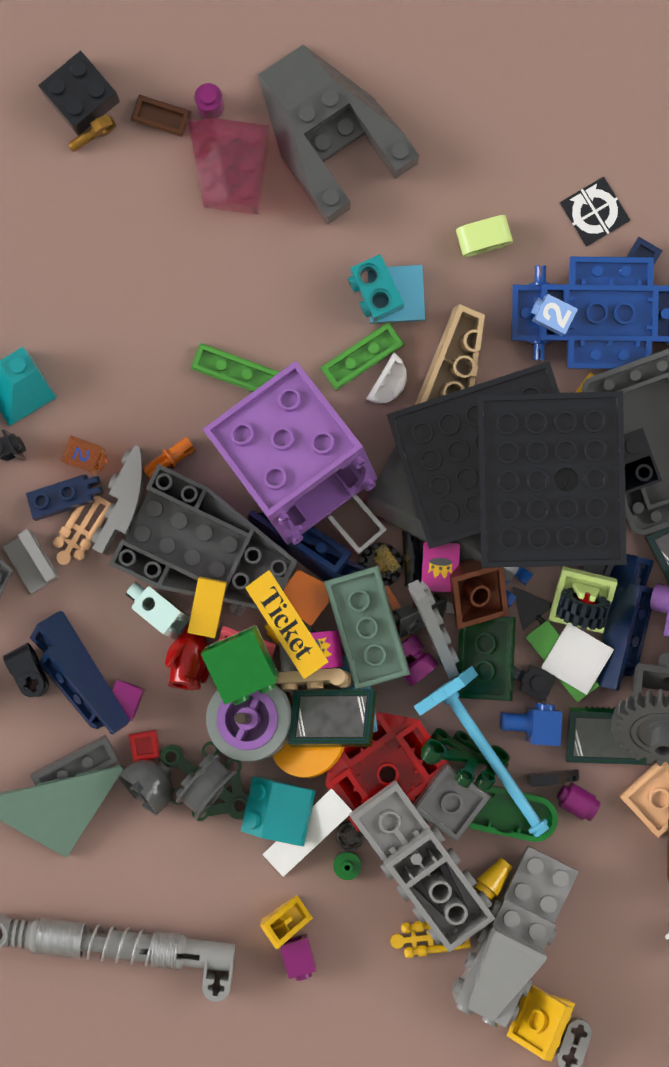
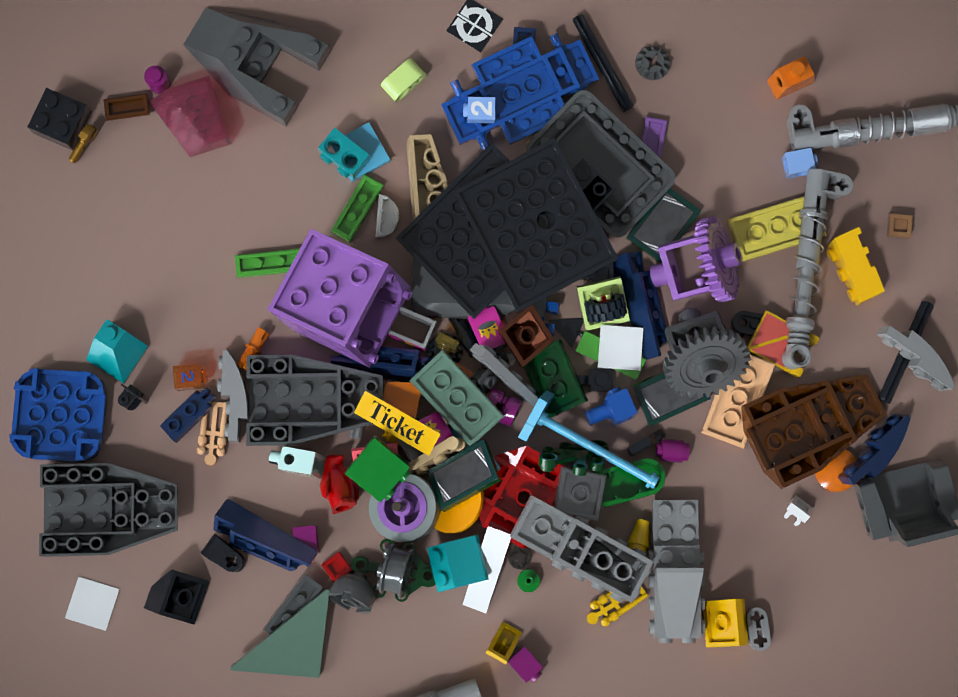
camera: 25 degrees left, 5 degrees down
(31, 561) = (187, 474): light grey panel -> none
(207, 607) = (333, 440): yellow tile -> none

